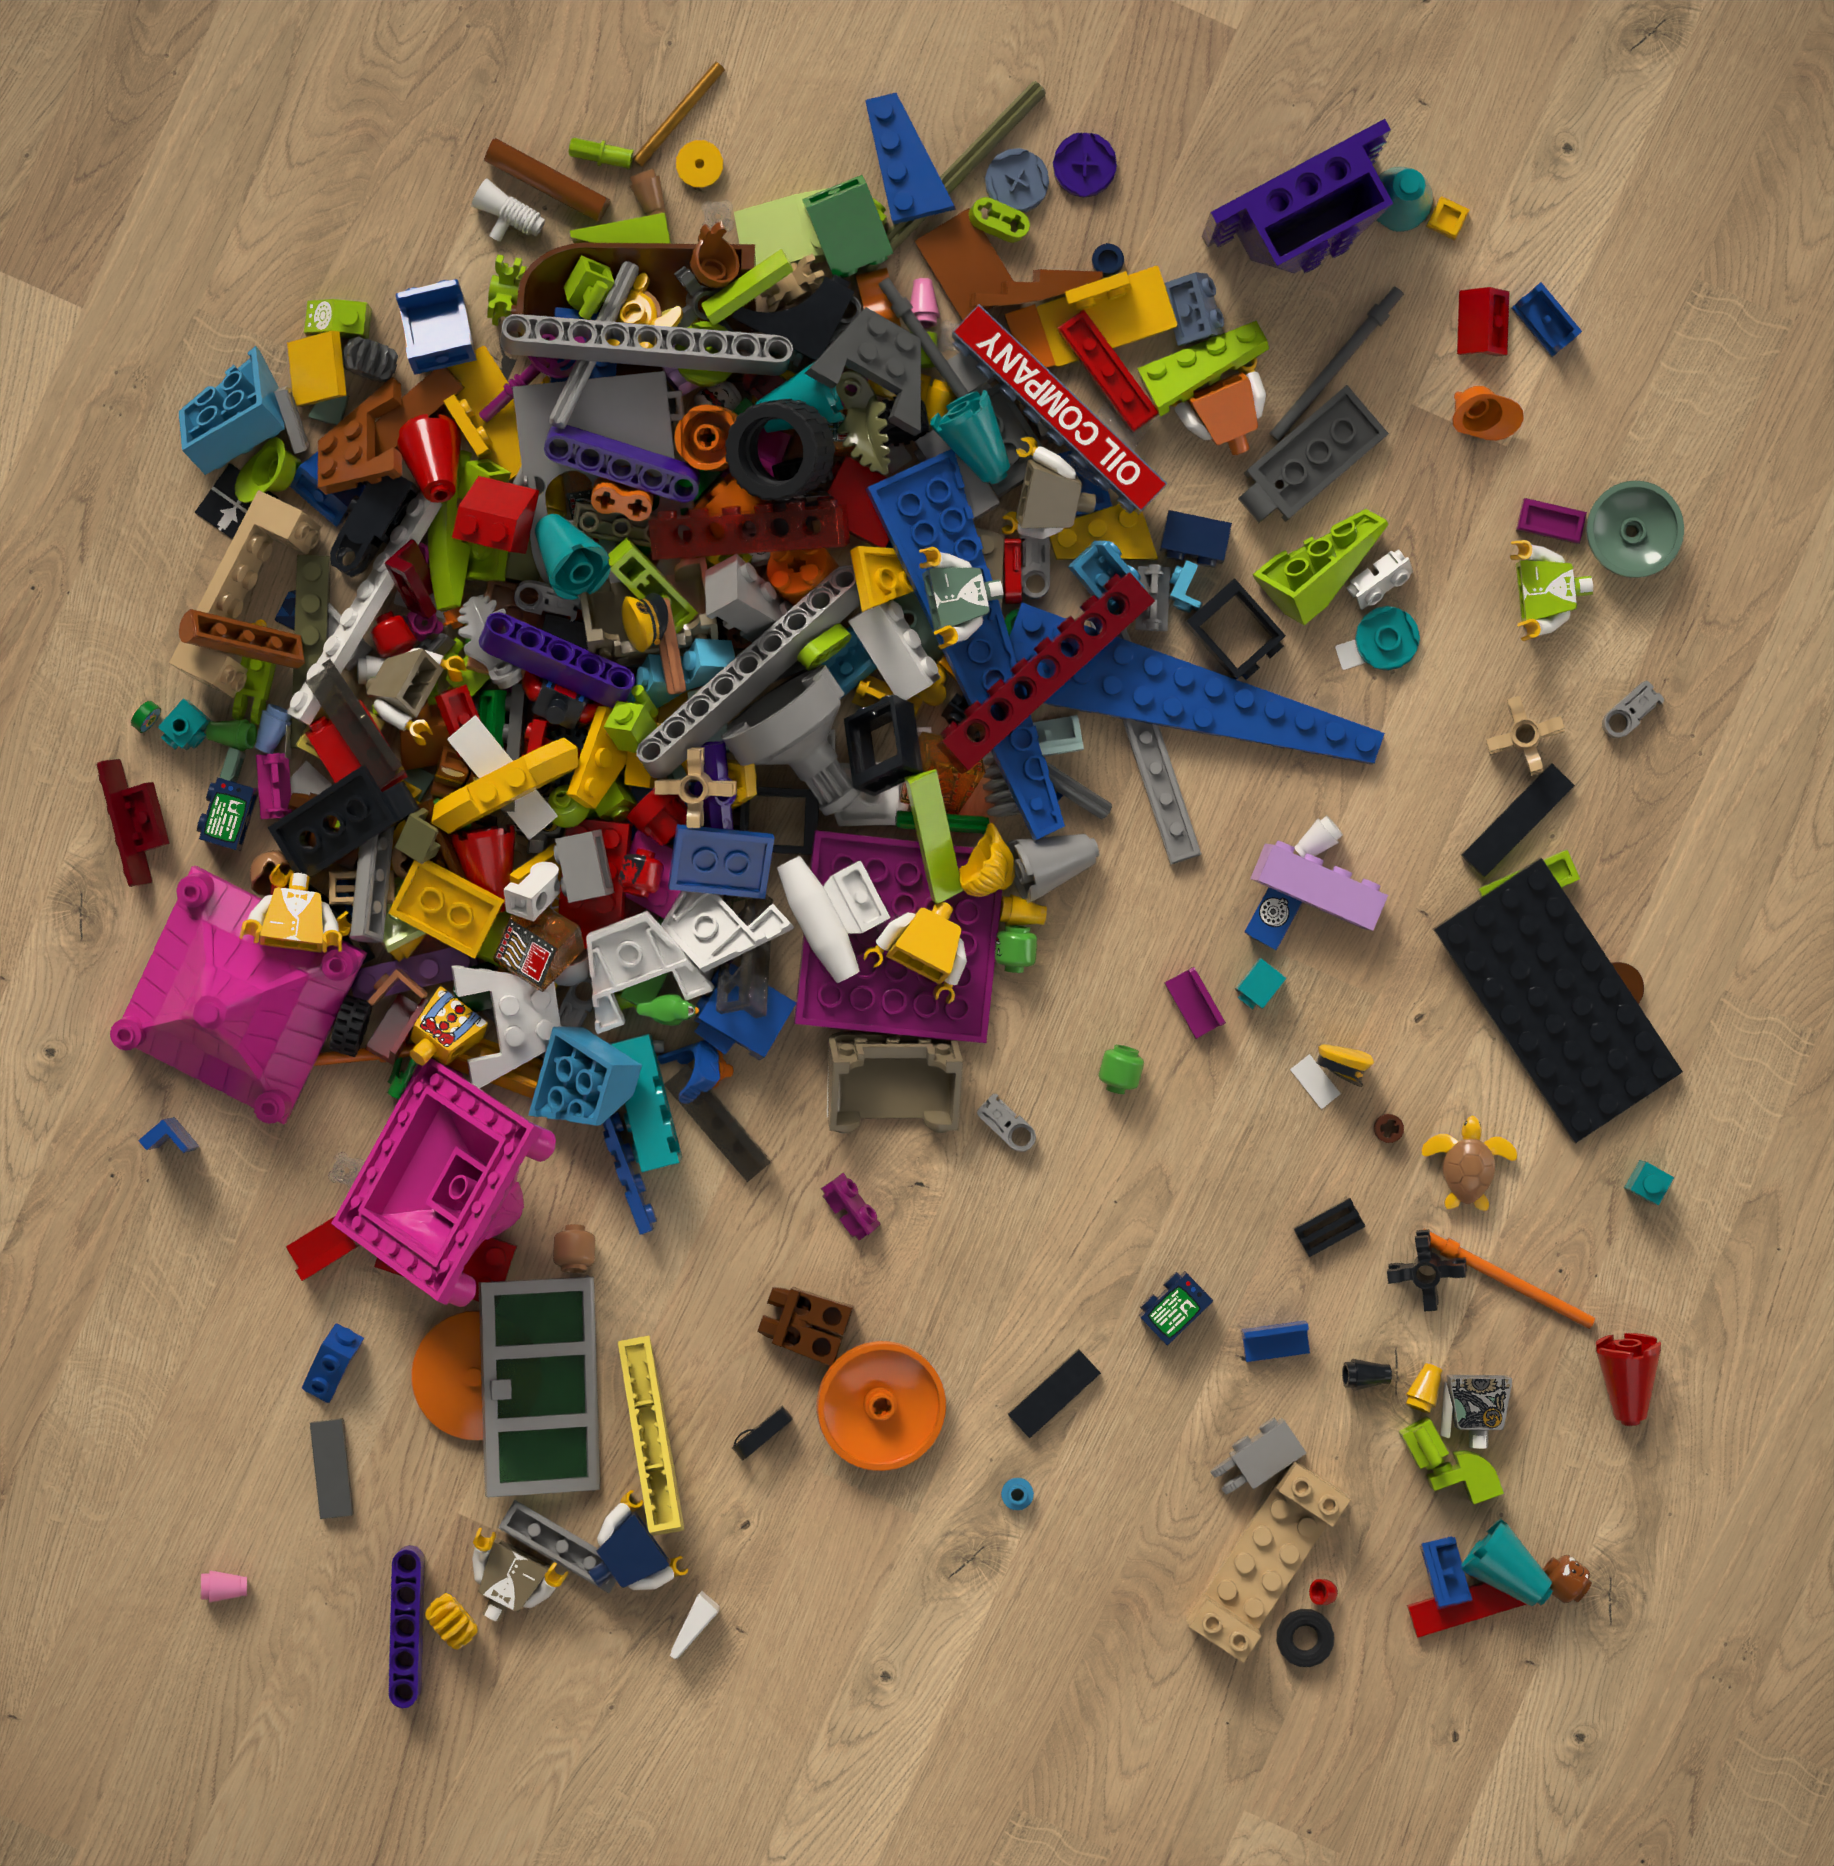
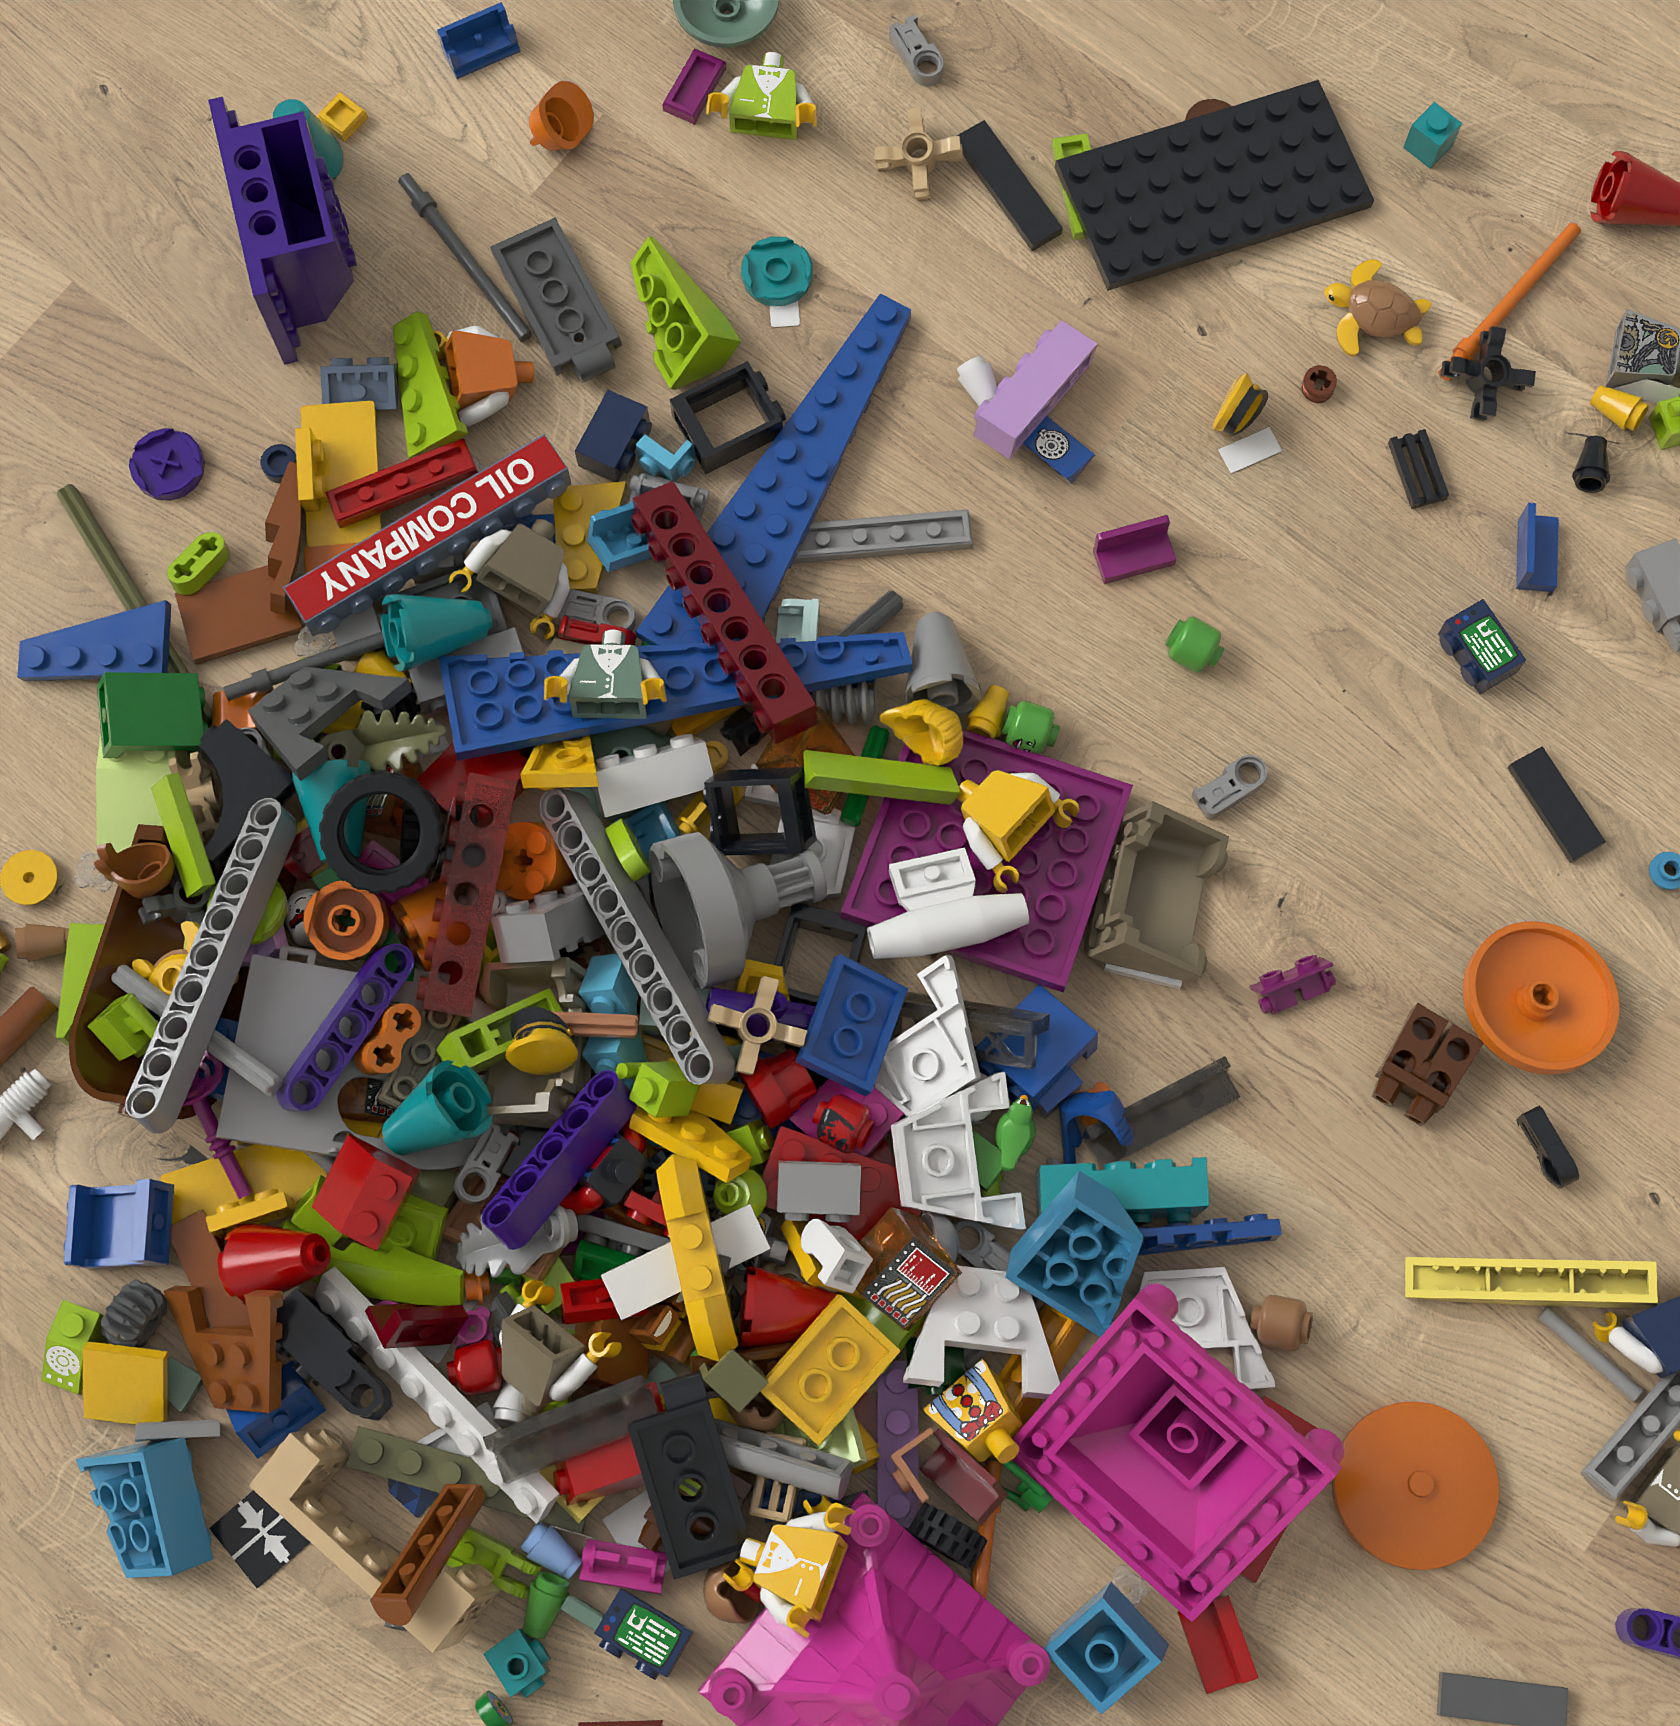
camera: 75 degrees left, 15 degrees down
(267, 470) = (227, 1472): lime piece -> none
(297, 1162) = (1106, 1647): none -> dark azure brick
(331, 1362) = (1368, 1666): blue bracket -> none
(504, 288) = (103, 1128): lime pin -> none
(539, 1386) = (1448, 1406): door -> none
(568, 1185) = (1215, 1318): none -> white wing
(609, 1493) = (1590, 1353): none -> light grey bar
(924, 302) = (256, 660): bright pink cone -> none
(1017, 179) = (159, 536): sand blue tile -> none
(1259, 984) = (1129, 477): teal brick -> none
(1370, 589) = (705, 249): white hinge -> none
(1483, 321) = (462, 105): red panel -> none

